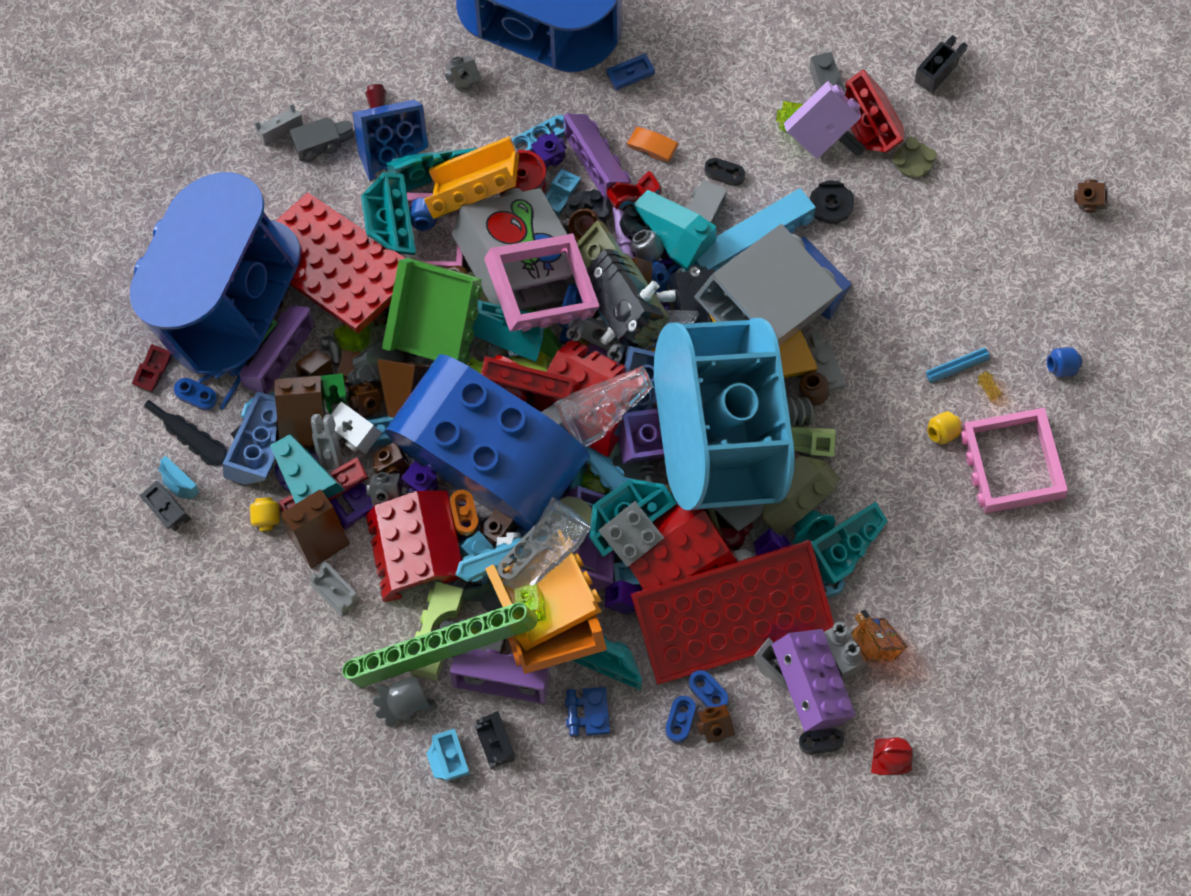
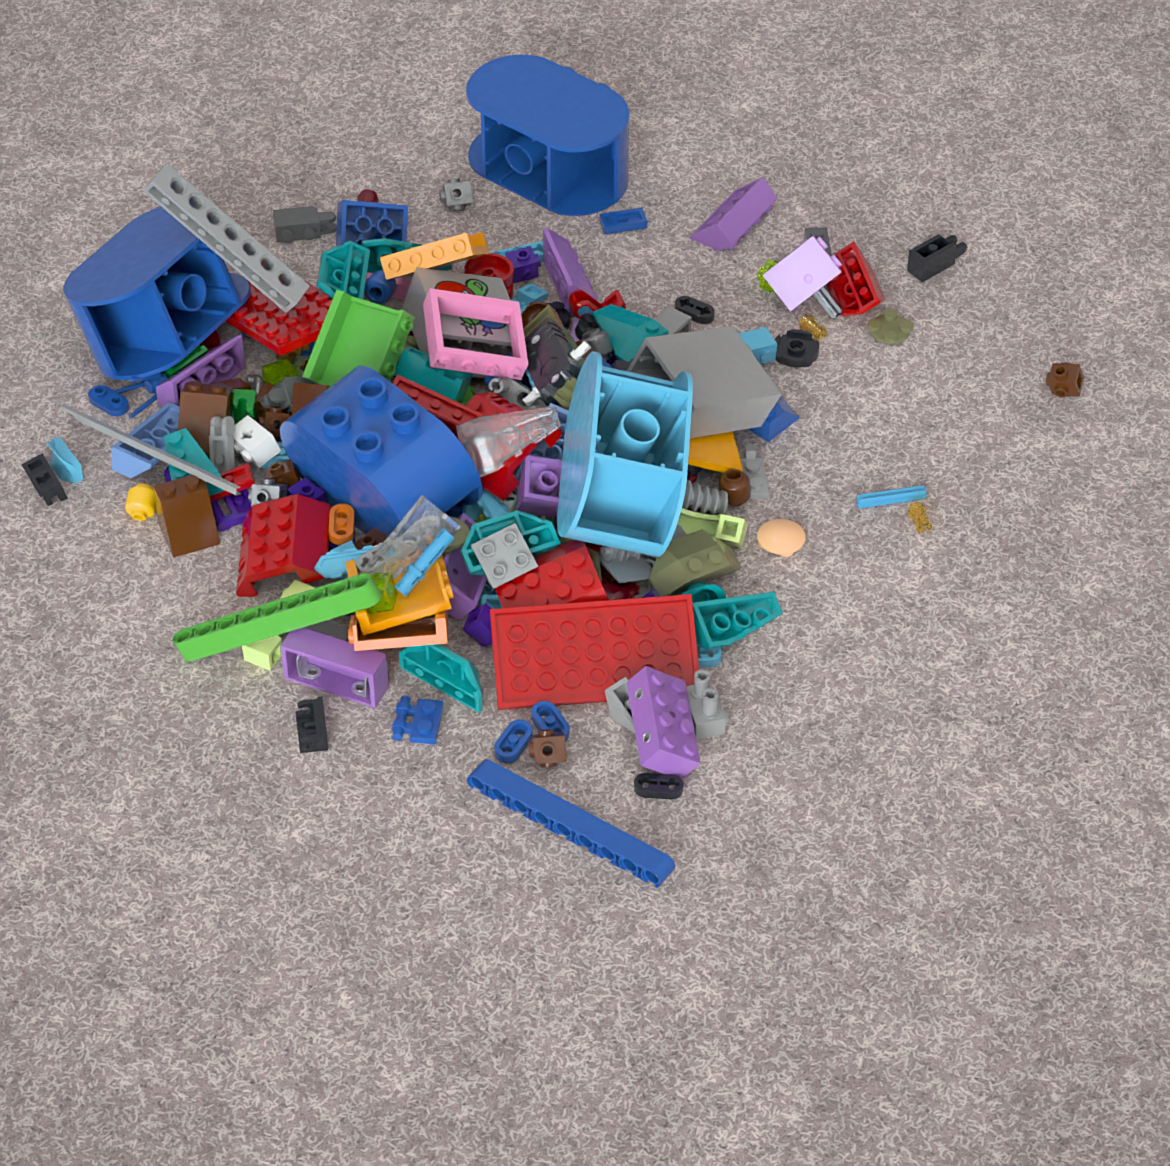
camera: 10 degrees right, 20 degrees down
(152, 369) = (77, 372): dark red slope -> none
(199, 442) = (94, 439): black sword -> none
(208, 198) = (230, 249): none -> light grey brick
(279, 125) = (263, 211): light grey hinge -> none
(334, 589) = (190, 573): light grey hinge -> none
(350, 505) = (153, 451): none -> light grey piece
(401, 701) = (223, 672): dark grey piece -> none
(447, 756) = (257, 730): medium azure slope -> none
(563, 572) = (420, 567): none -> dark azure pin
(653, 143) = (631, 278): orange slope -> none
(736, 46) = (736, 216): none -> medium lavender slope
(755, 798) = (571, 821): none -> blue beam
(841, 172) = (809, 324): none -> clear yellow pin
(867, 433) = (781, 537): none -> light nougat dish
(877, 639) = (738, 698): clear orange torso -> none
(892, 756) = (732, 812): red piece -> none
(944, 428) = (862, 542): yellow head -> none
(1050, 453) = (929, 613): bright pink window -> none
(1064, 362) = (1003, 508): blue head -> none

